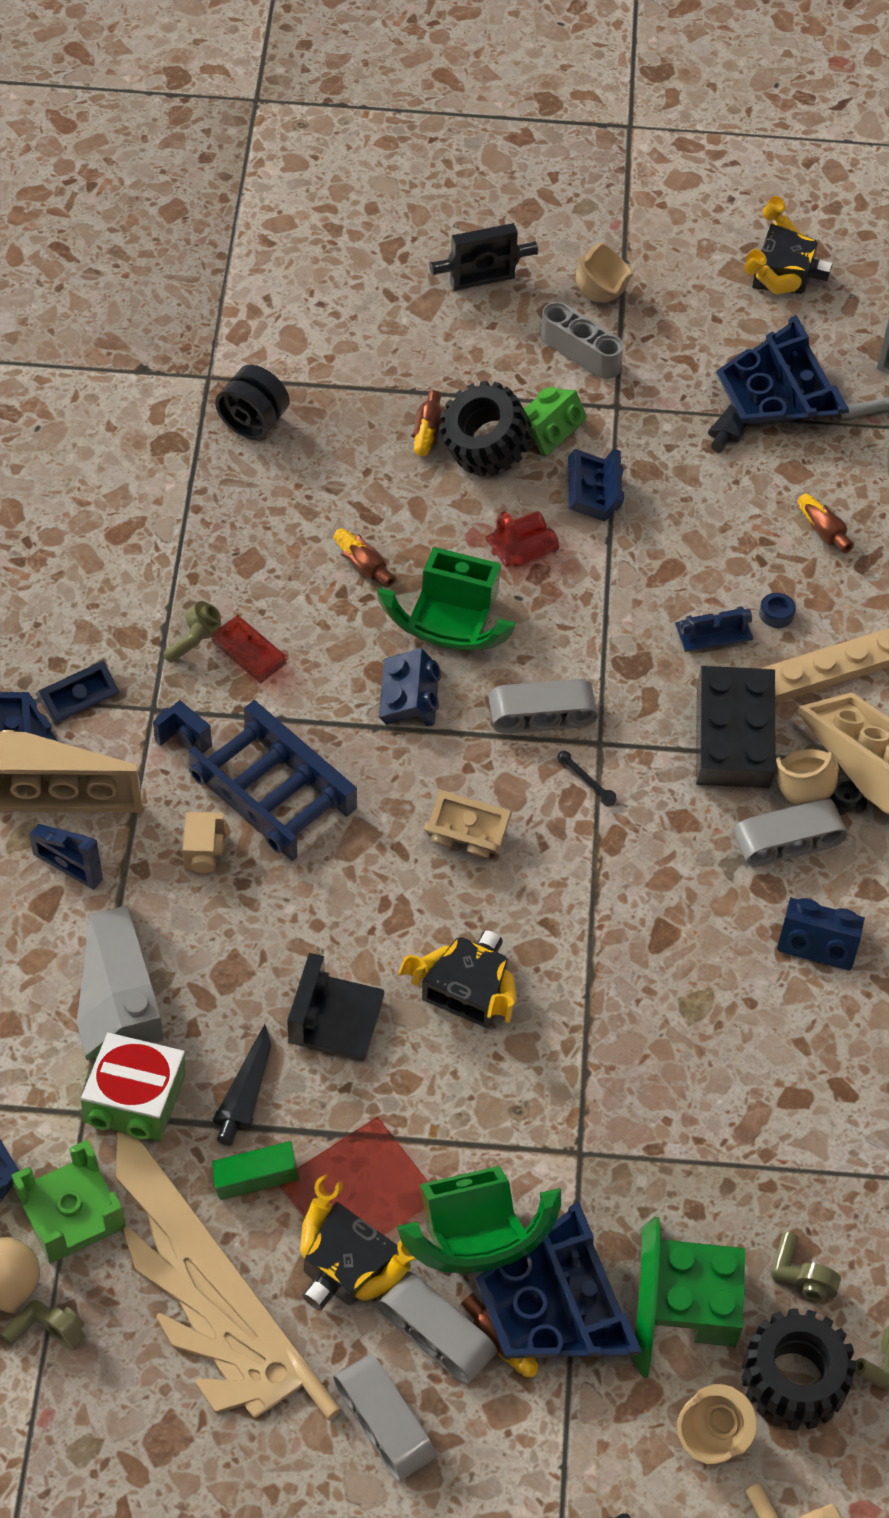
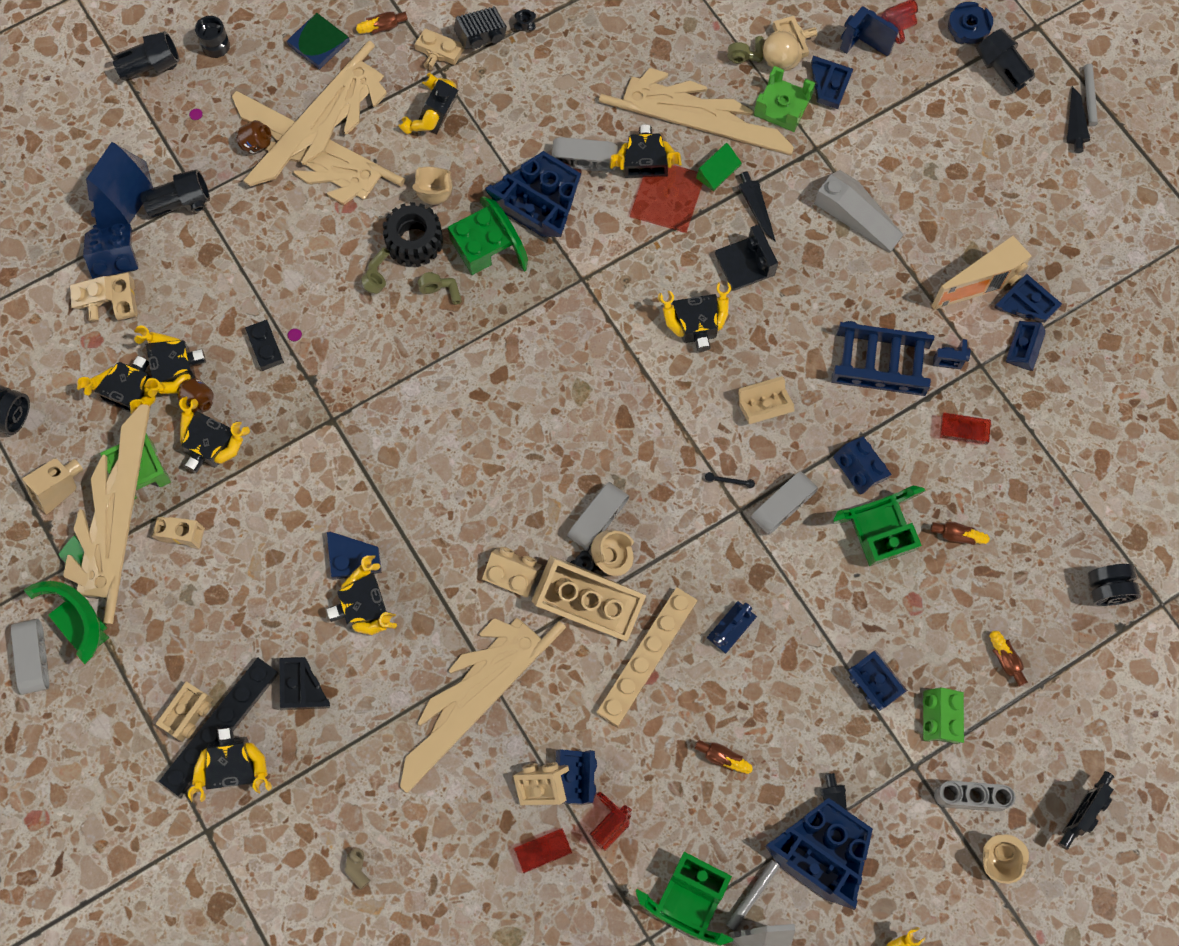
camera: 145 degrees right, 15 degrees up
(69, 853) = (933, 248): dark blue wing -> none
(133, 1087) = (803, 162): piece -> none
(203, 621) = (1001, 418): olive plate -> none
(203, 841) = (884, 300): tan brick -> none
(385, 1417) = (577, 106): light grey beam -> none
(476, 408) = (958, 676): black tyre -> none
(476, 1223) = (598, 195): green piece -> none
(521, 539) = (885, 610): clear red piece -> none
(735, 727) = (671, 554): black brick -> none
(777, 610) = (707, 671): dark blue tile -> none
(821, 933) = (544, 470): dark blue bracket -> none

